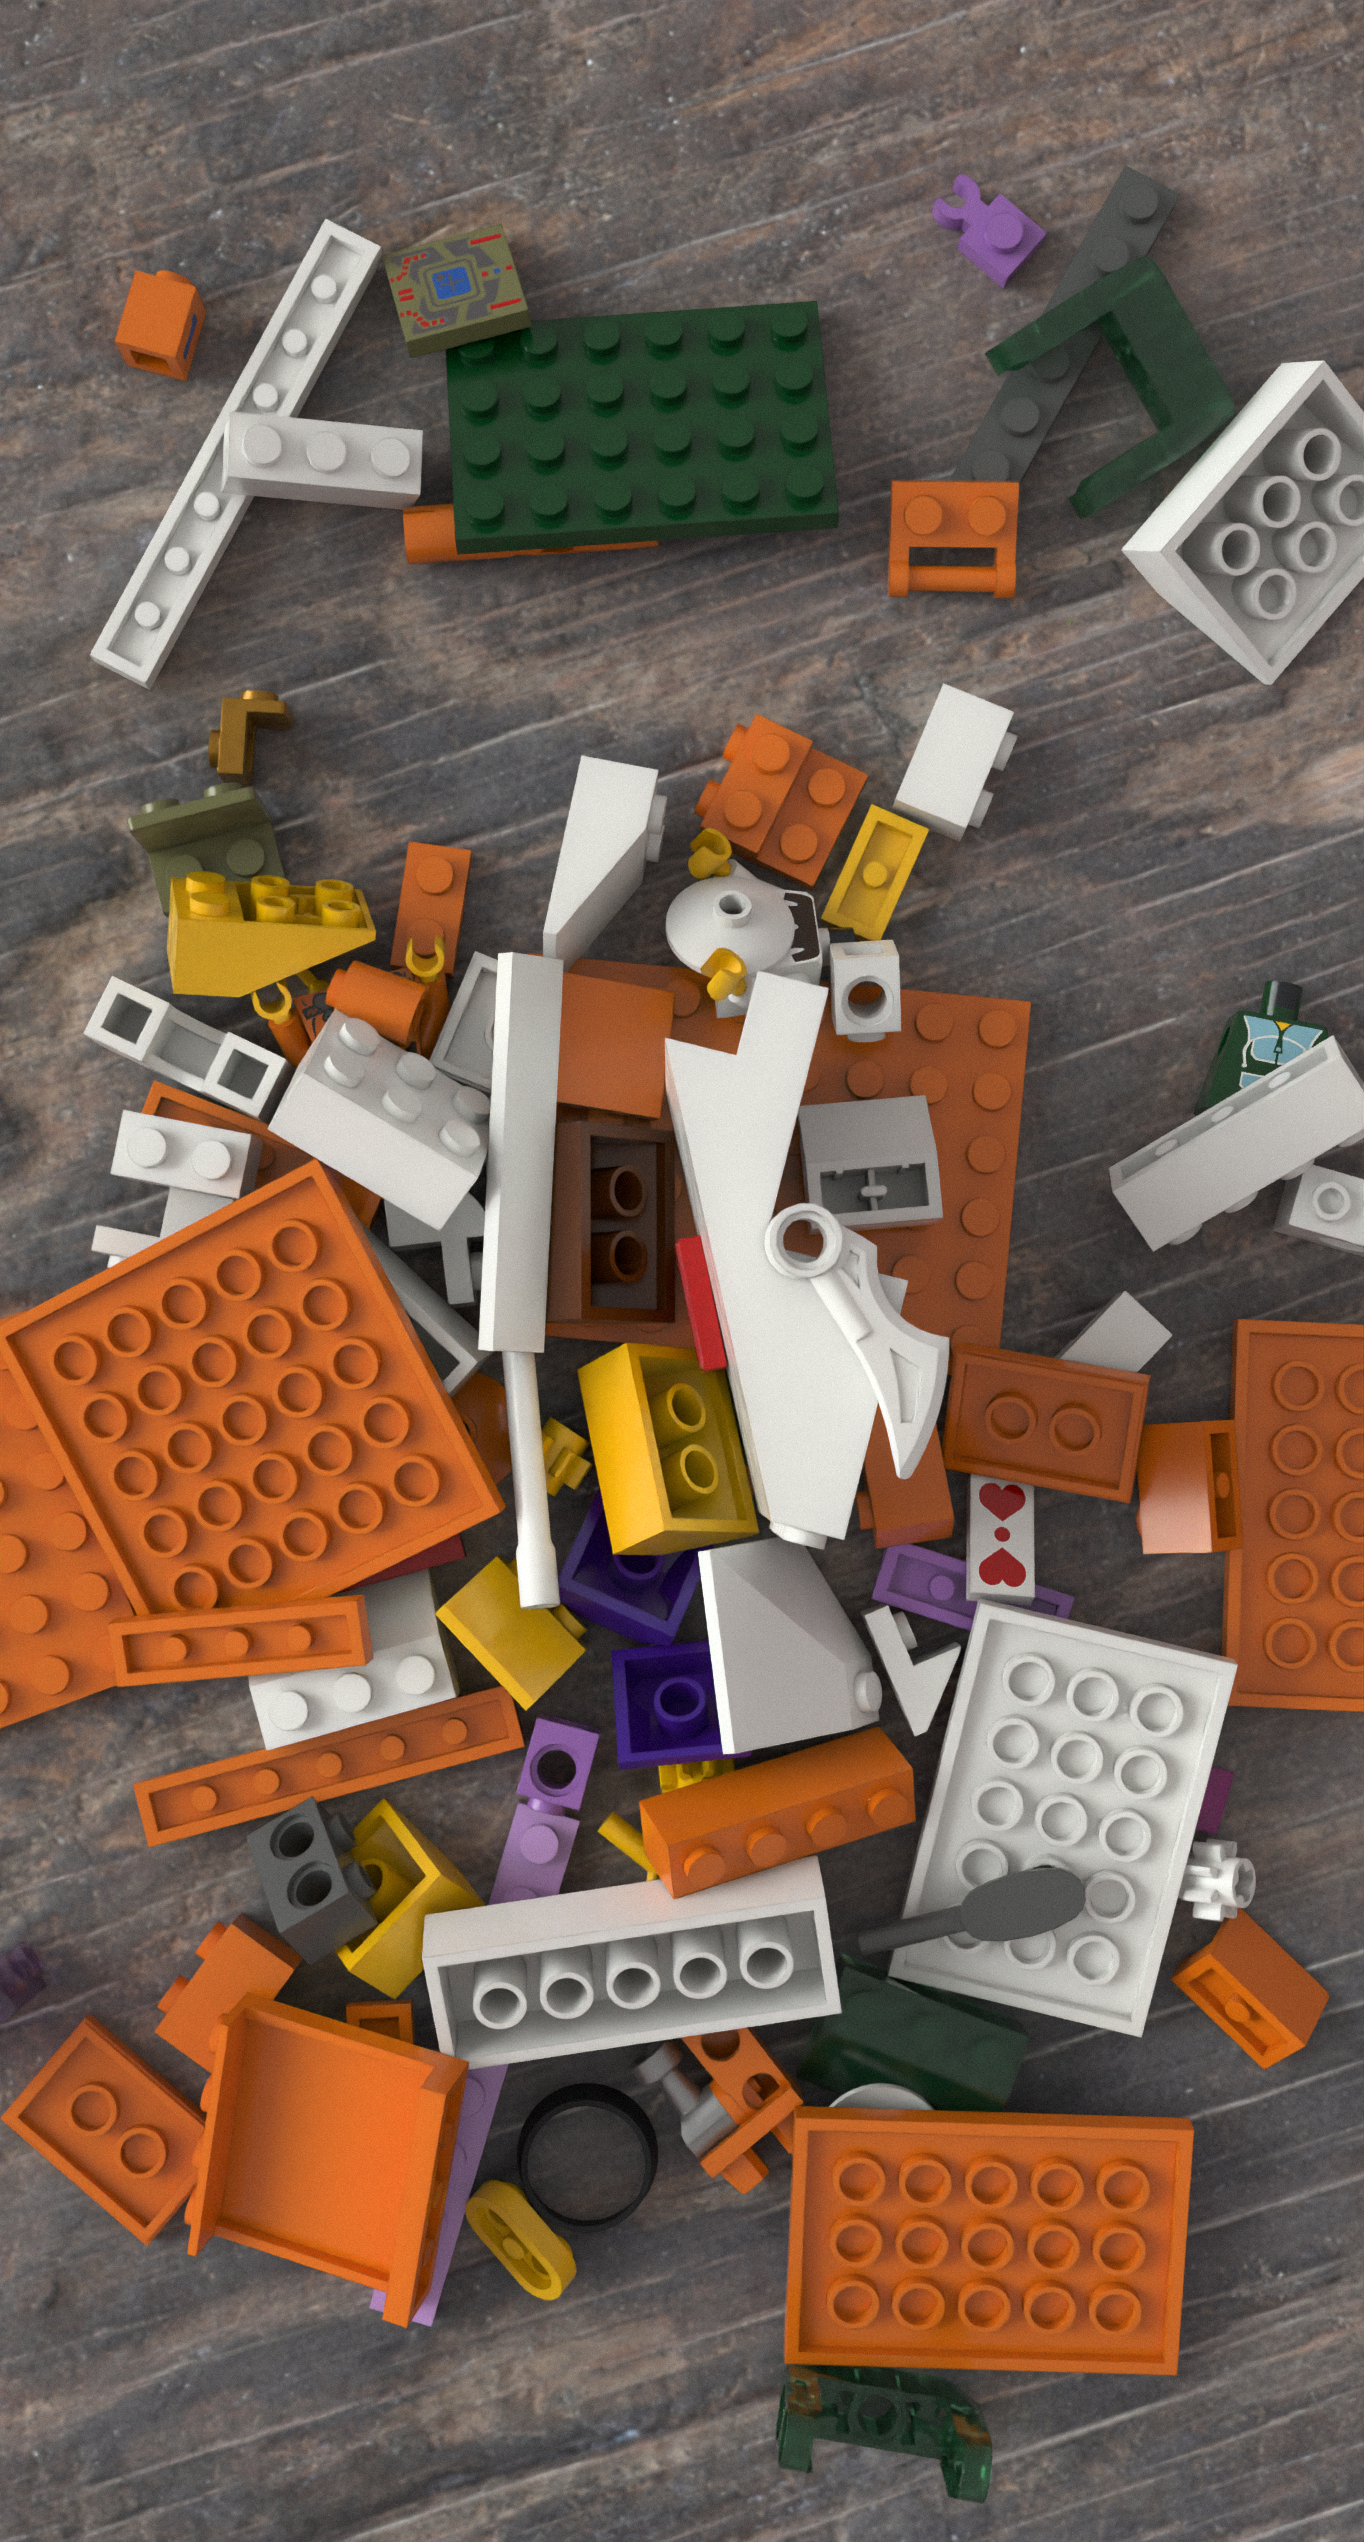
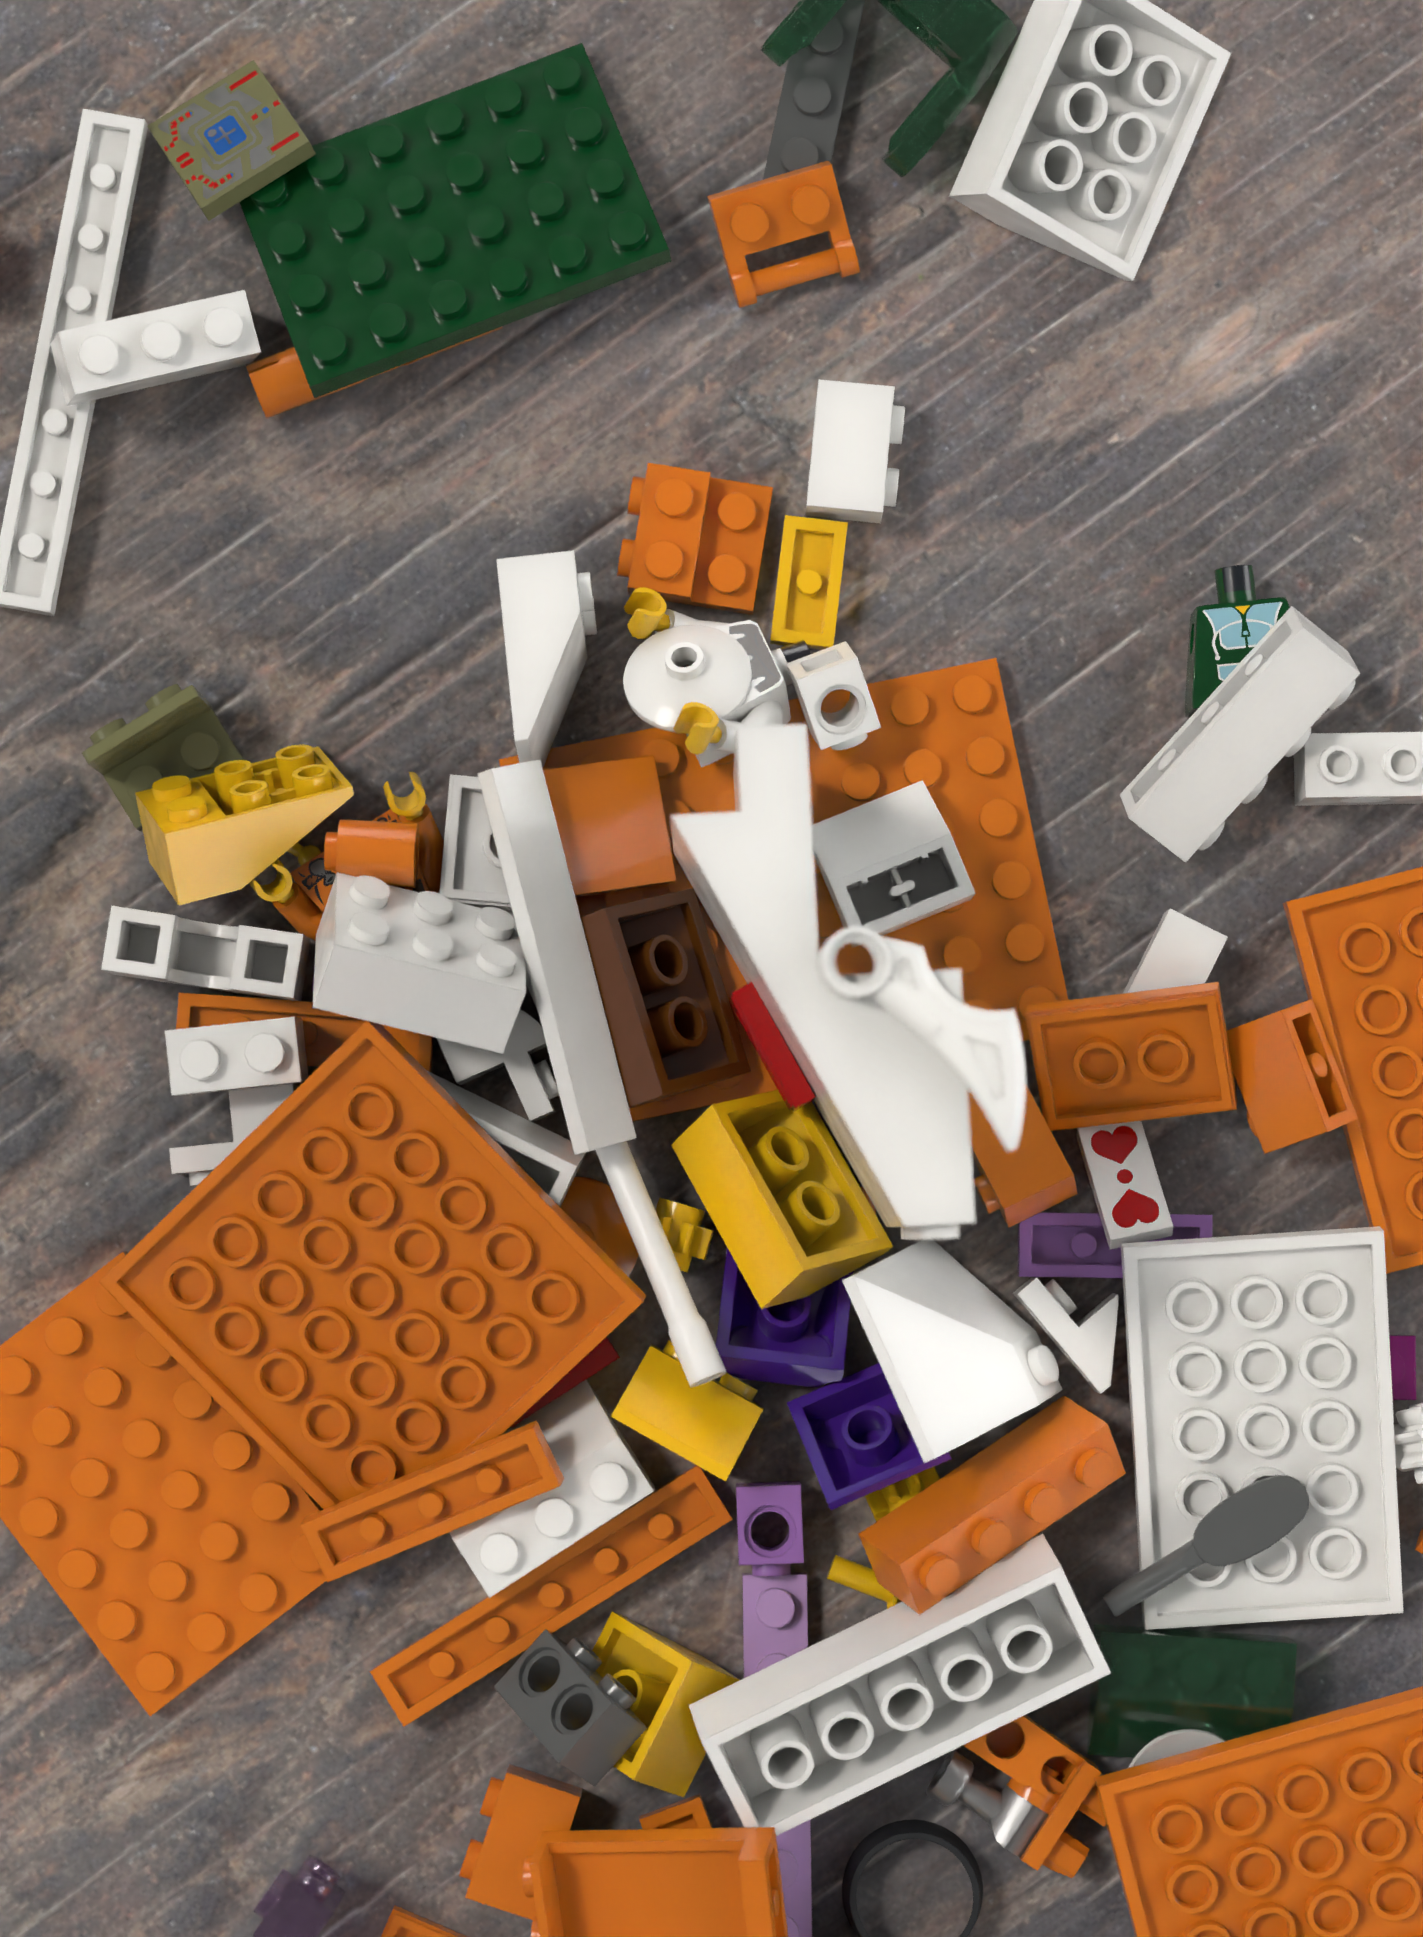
camera: 15 degrees left, 0 degrees up
(233, 745) = (153, 646): pearl gold bracket -> none
(432, 903) = (390, 740): orange plate -> none

